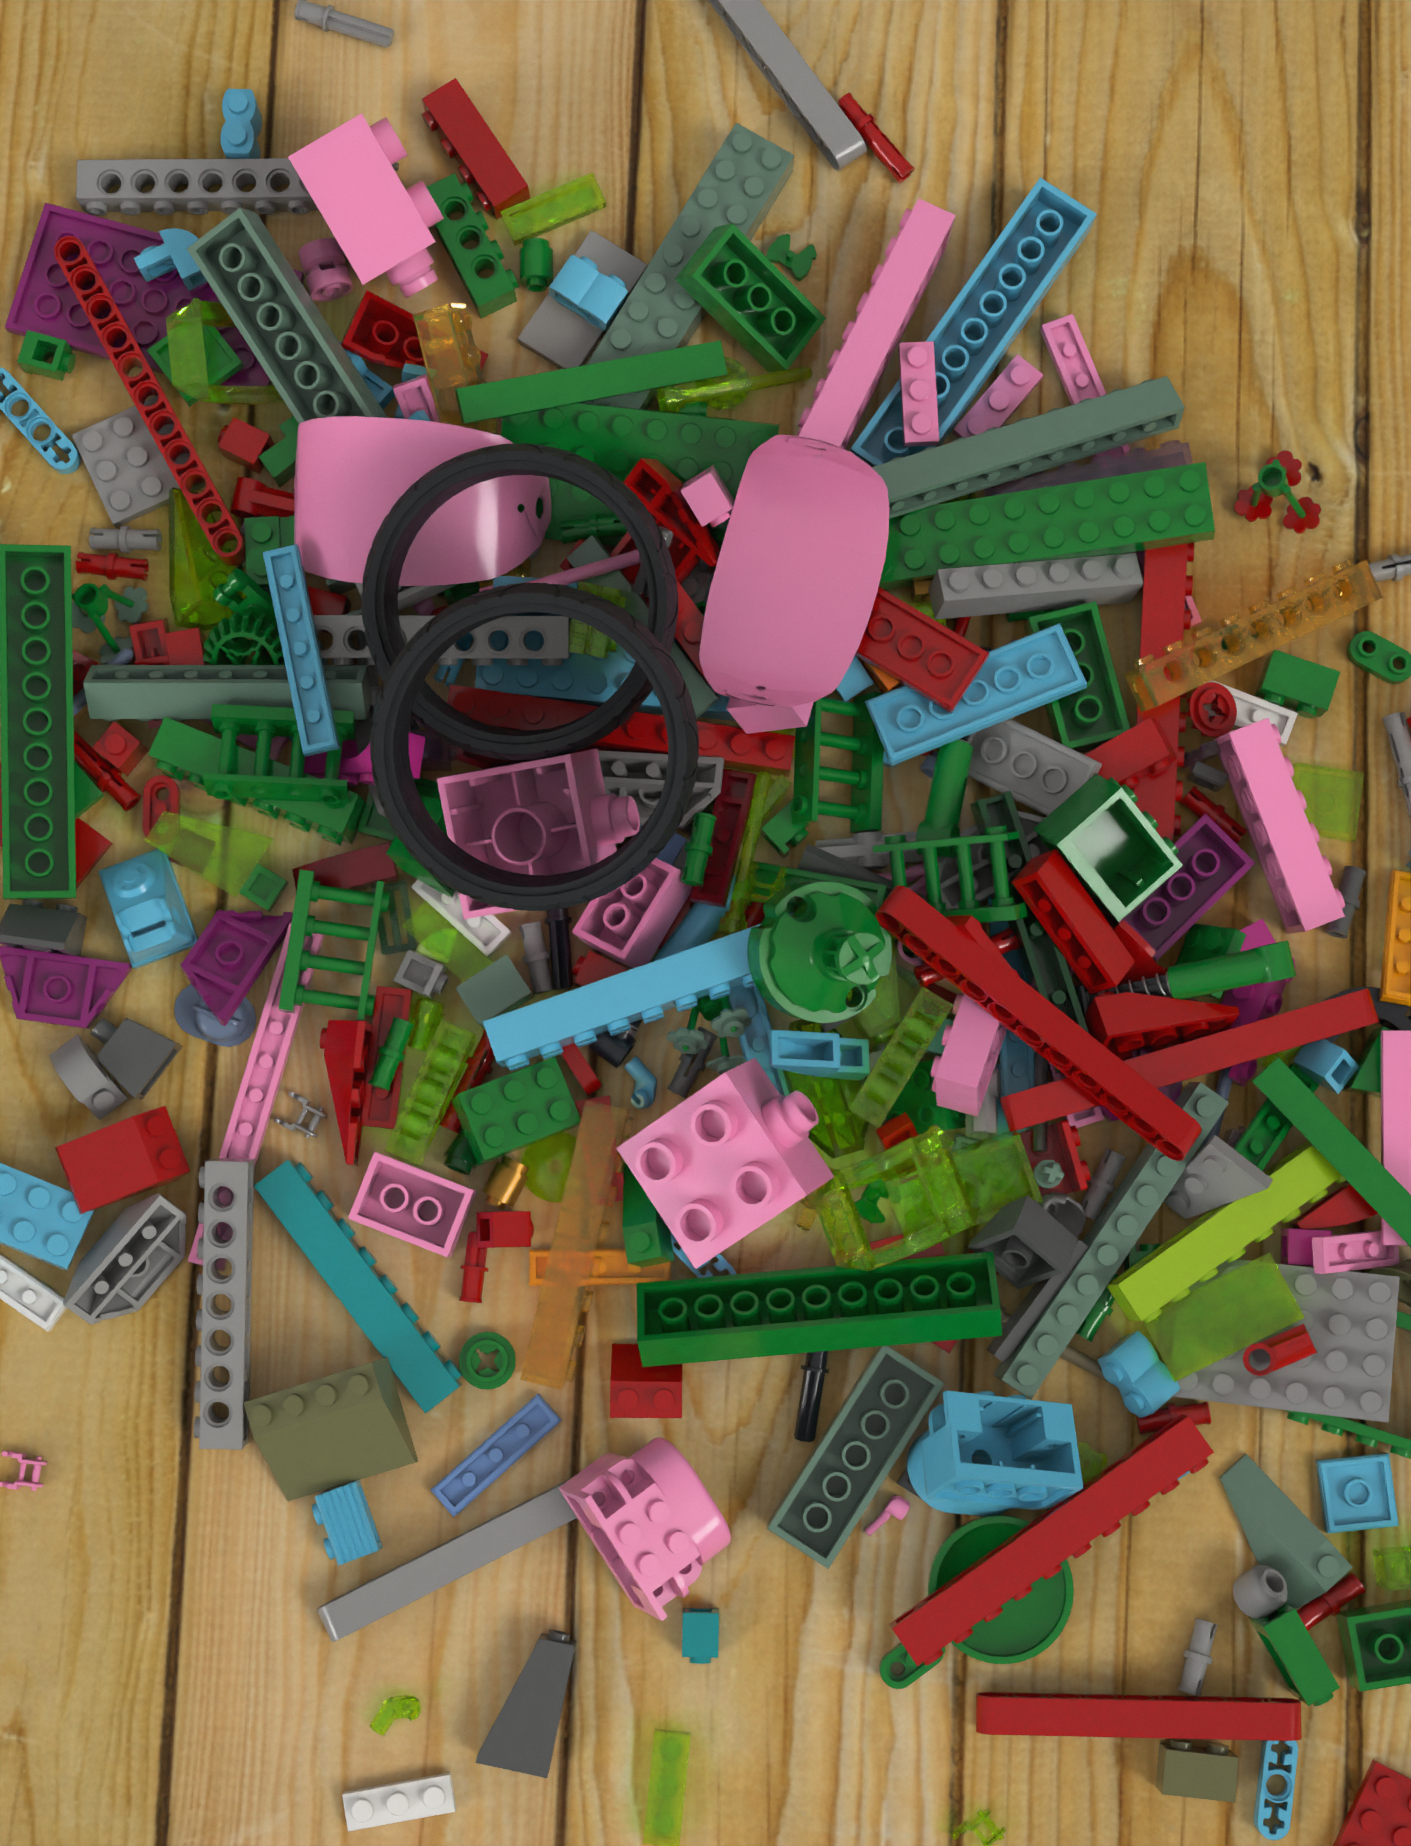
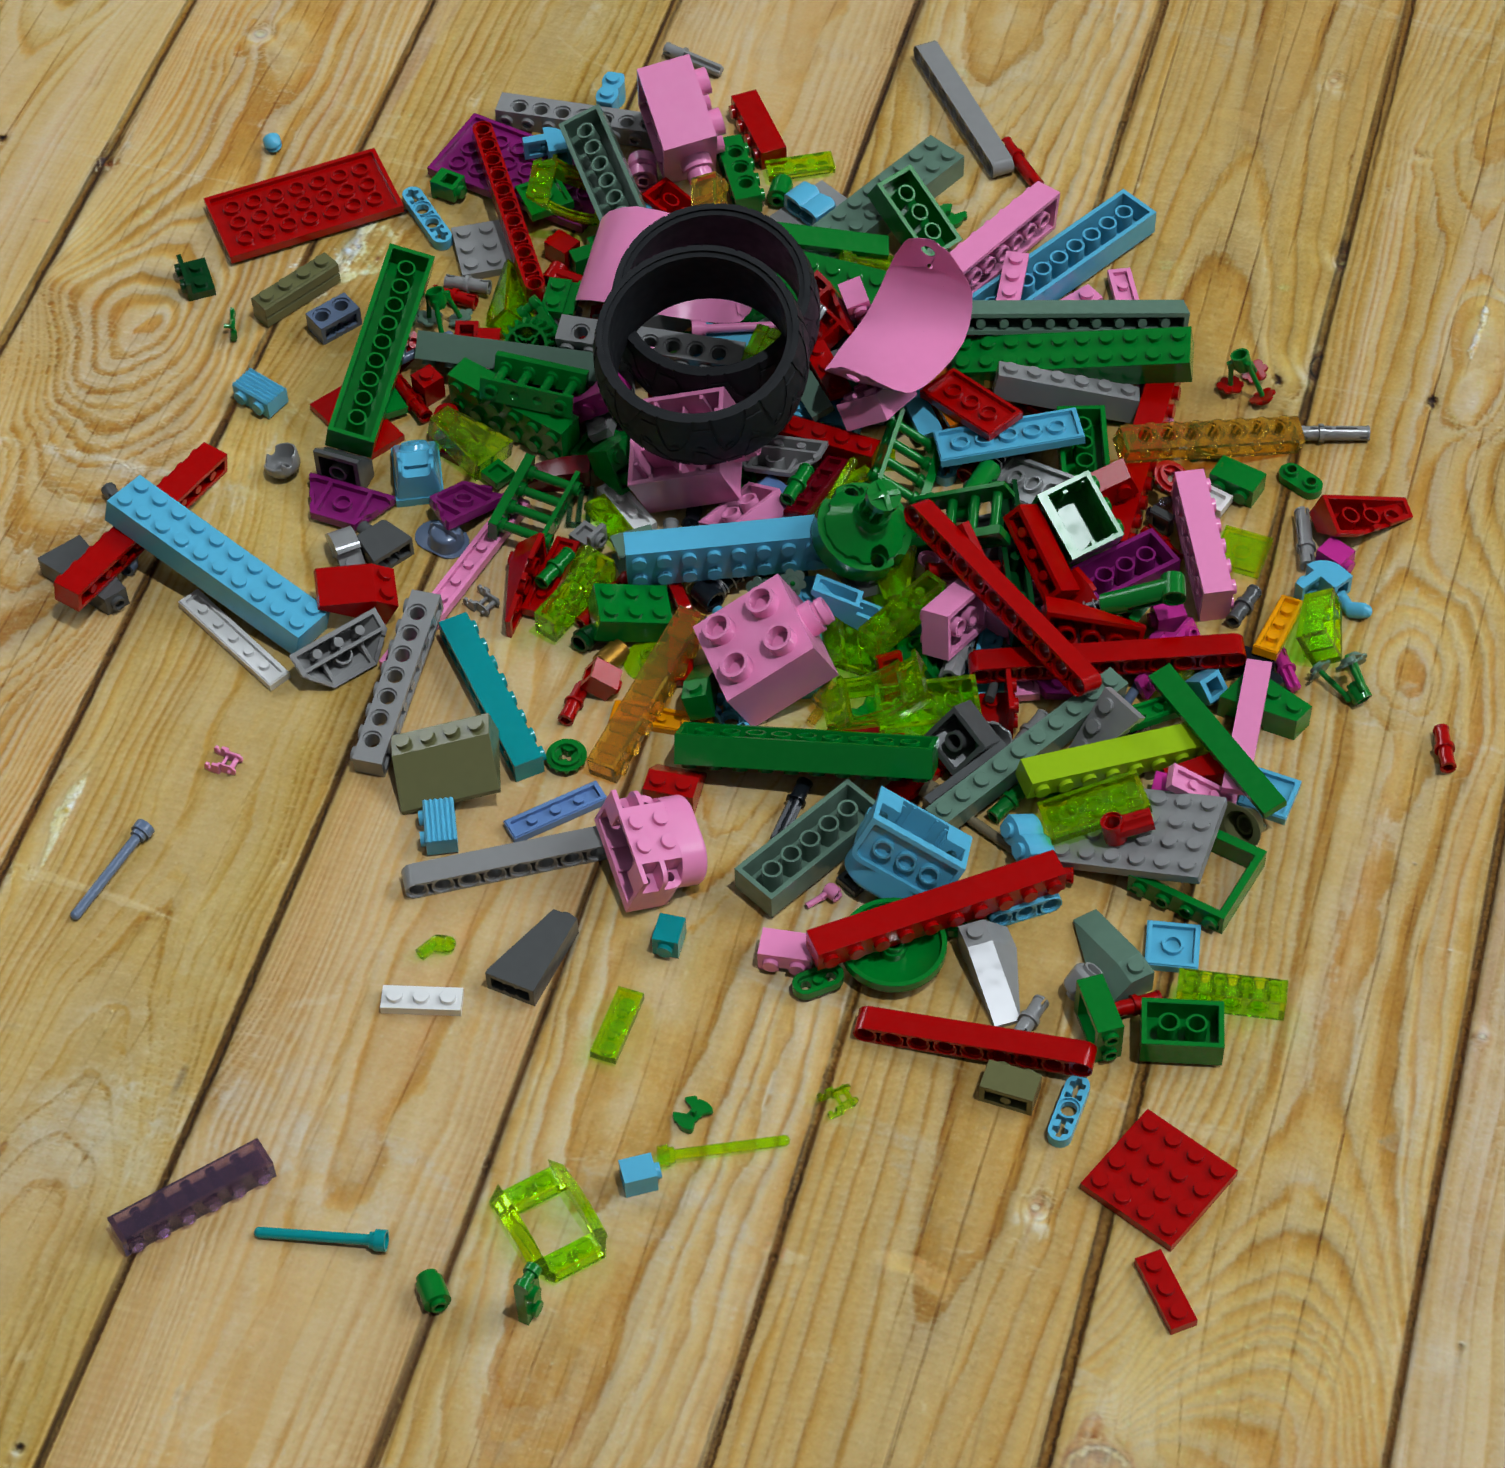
camera: 15 degrees right, 30 degrees down
(301, 650) = (565, 330): medium azure tile -> none
(412, 1204) = (543, 653): bright pink brick -> none
(860, 1625) = (783, 950): none -> bright pink brick
(1048, 1174) = (989, 701): sand green axle -> none
(1136, 1585) = (993, 967): none -> light grey wedge

